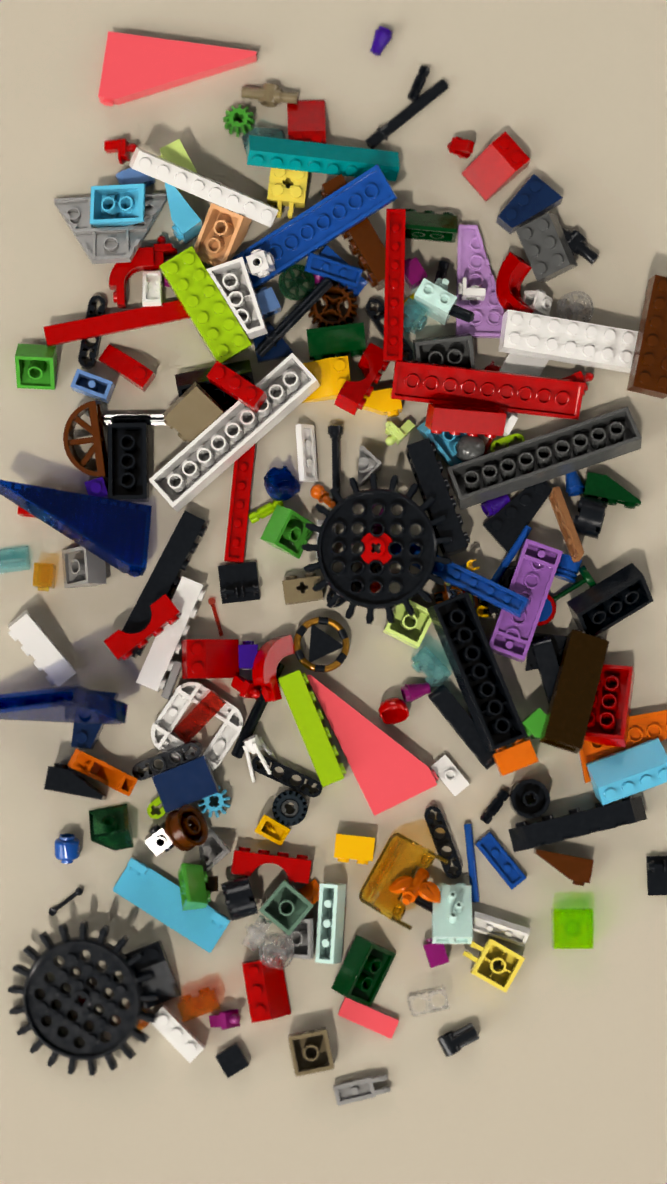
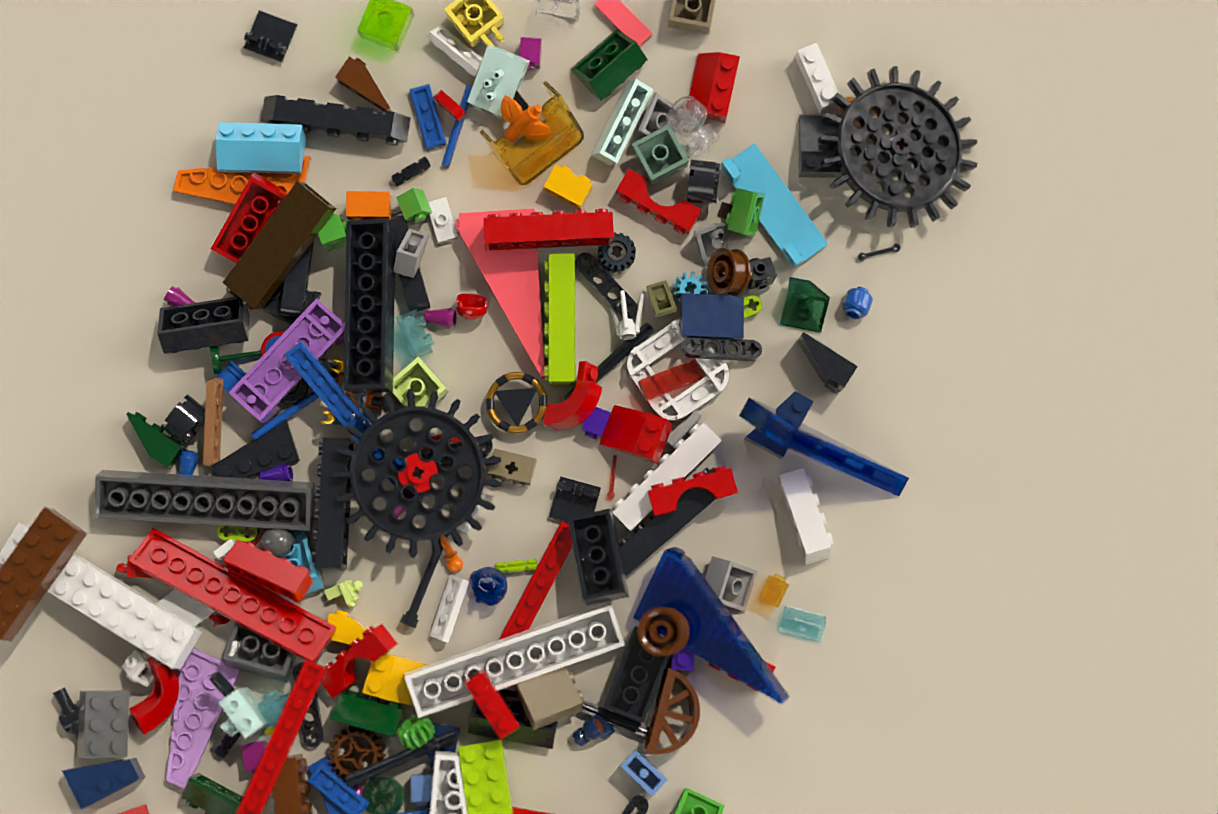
camera: 155 degrees left, 0 degrees up
(102, 772) = (790, 363): orange arch -> none
(111, 509) = (676, 627): none -> reddish brown wheel
(127, 367) = (600, 779): red slope -> none
(148, 403) = (592, 729): none -> dark blue piece
(198, 541) = (598, 557): none -> black brick
(199, 1004) = (785, 97): clear orange brick -> none
(225, 1019) = (764, 72): magenta piece -> none
(232, 1060) = (773, 32): black piece -> none
(234, 782) = (661, 298): none -> olive slope
(246, 687) = (611, 390): red piece -> none
(272, 830) = (644, 238): yellow slope -> none
(287, 531) = (502, 534): bright green slope -> none
(291, 341) = (415, 731): none -> bright green gear
(311, 891) = (628, 161): orange slope -> none
(352, 797) = (548, 230): none -> red brick
(367, 464) = (392, 568): light grey slope -> none
(445, 841) = (474, 157): black beam -> none
(462, 732) = (410, 253): none -> light grey slope
(474, 293) = (202, 705): white bracket -> none
(478, 776) = (414, 205): none -> bright green brick
(485, 876) = (449, 105): none -> red beam
(539, 794) = (378, 153): black brick -> none
(575, 308) = (102, 646): clear wheel -> none
(643, 616) = (177, 297): none -> magenta cone

